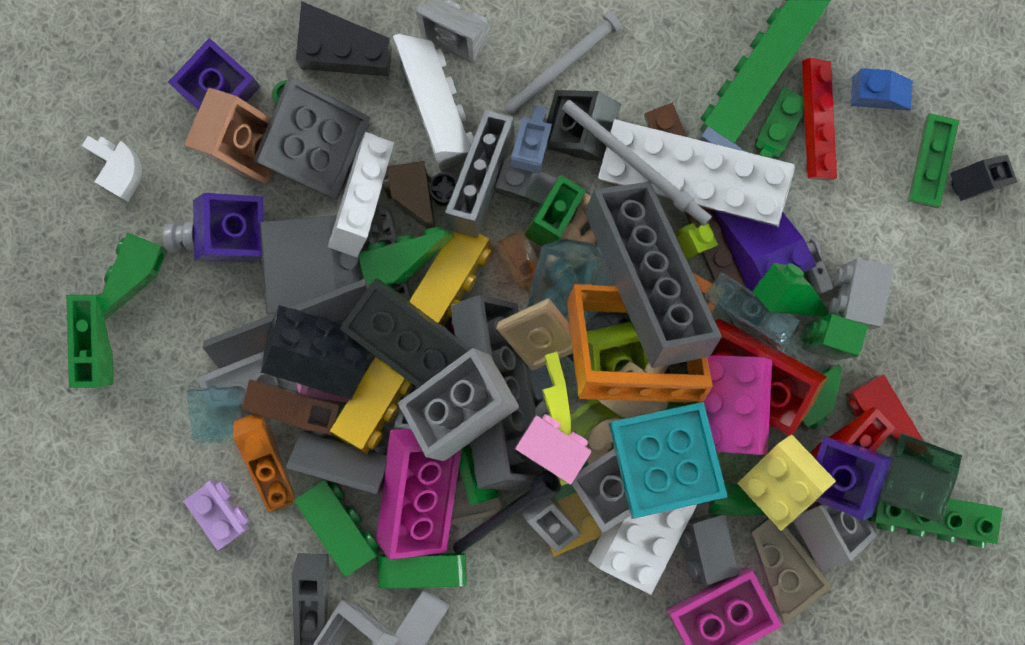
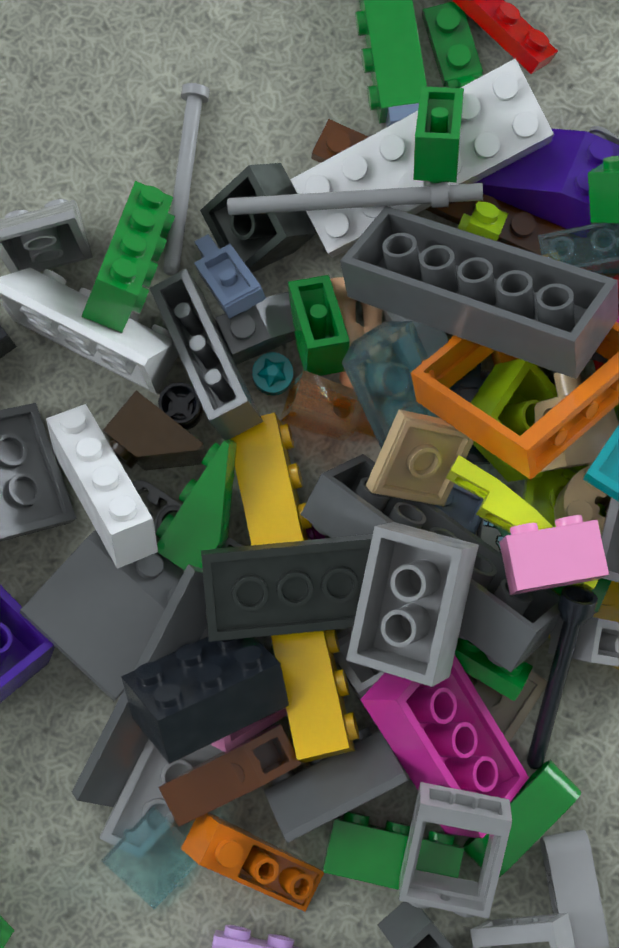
camera: 40 degrees left, 5 degrees down
(388, 535) = (463, 811): none -> light grey window
(487, 83) = (129, 258): none -> green brick
(511, 216) = (272, 373): none -> teal tile
(711, 168) = (438, 134): none -> green slope

